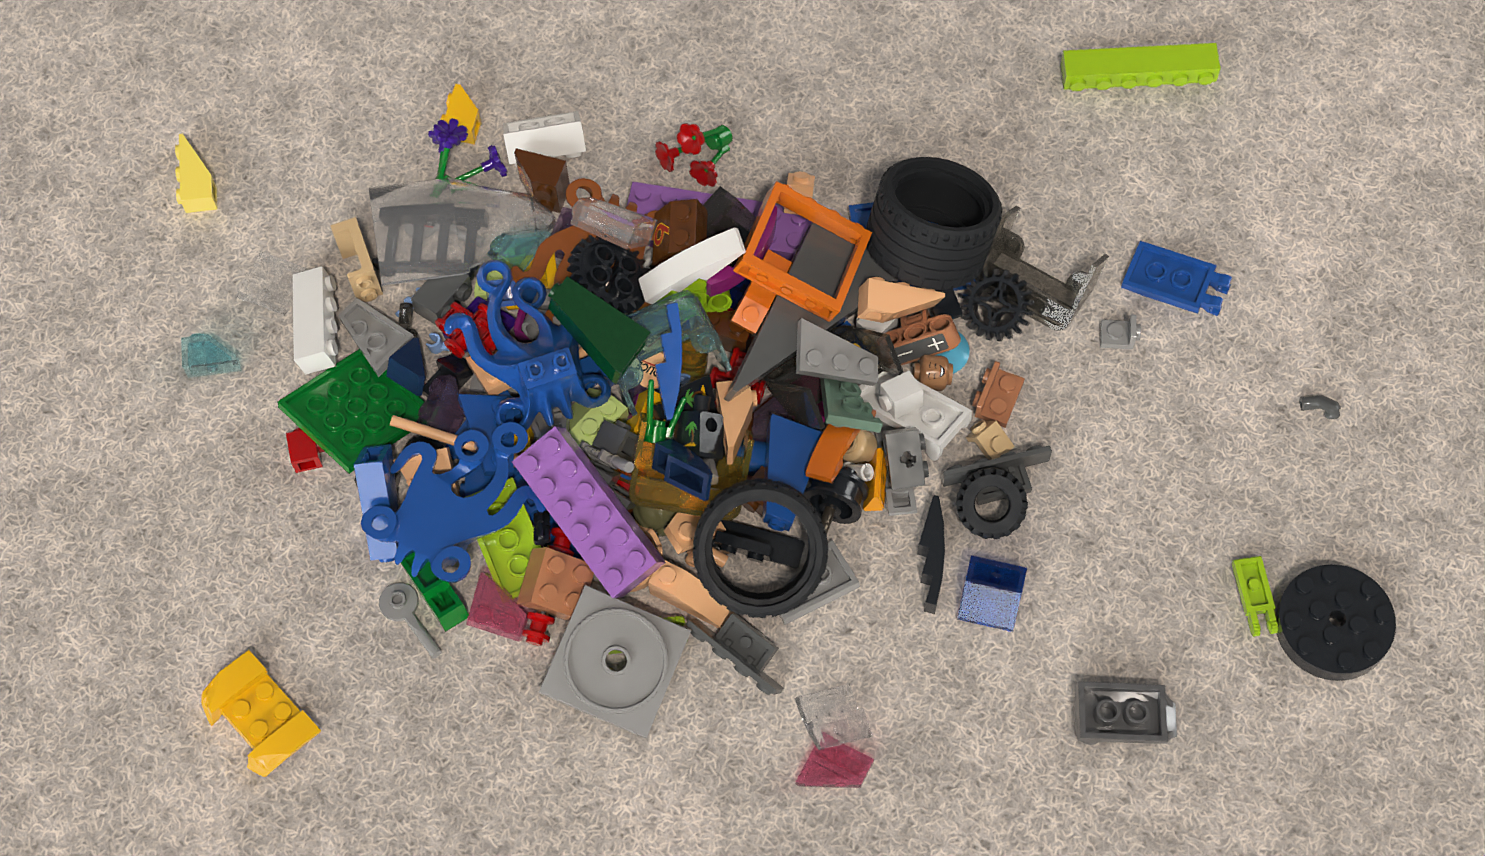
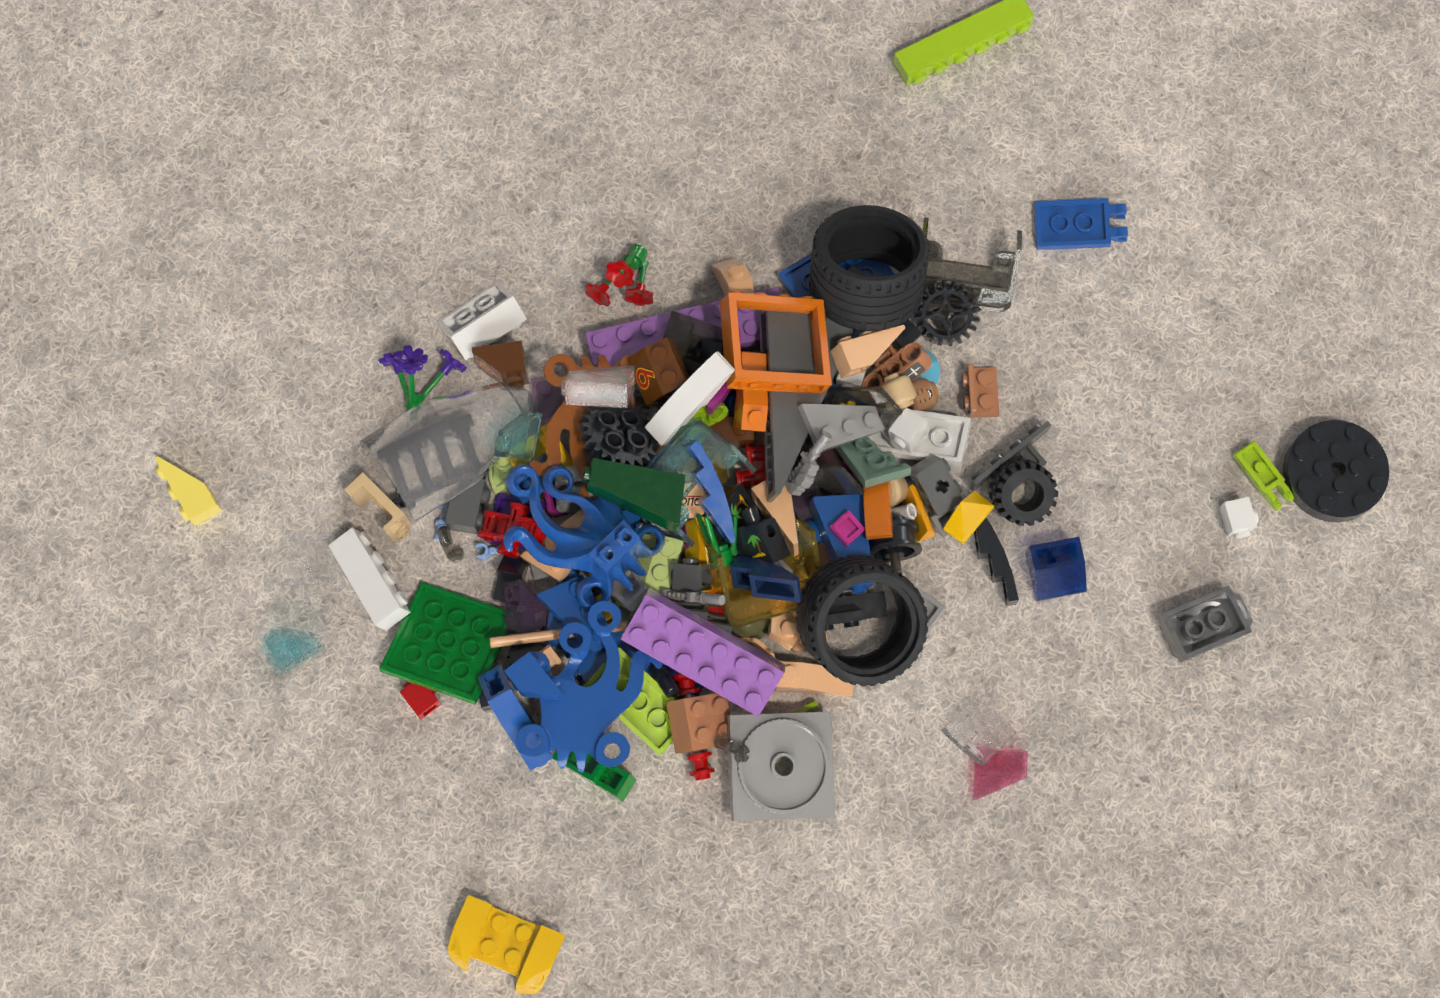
camera: 25 degrees left, 10 degrees up
(373, 333) = (428, 567): light grey wing -> none
(400, 603) = (571, 794): light grey piece -> none
(407, 367) = (475, 586): dark blue slope -> none
(407, 464) = (531, 679): none -> blue slope
(464, 110) = (398, 330): yellow slope -> none
(496, 610) = (658, 765): clear pink wing -> none
(569, 612) = (727, 744): none -> clear smoke arm
(743, 647) = (877, 705): dark grey bracket -> none
(773, 386) = (807, 468): none -> light grey piece
(790, 457) = (847, 528): none -> dark pink tile
(911, 352) = (900, 389): none -> tan head
(922, 501) = (968, 517): none -> yellow slope
(990, 439) = (992, 433): tan bracket -> none
(1119, 333) = (1055, 292): light grey bracket -> none
(1209, 624) = (1239, 517): none -> white brick
(1321, 402) = (1244, 283): dark grey arm -> none

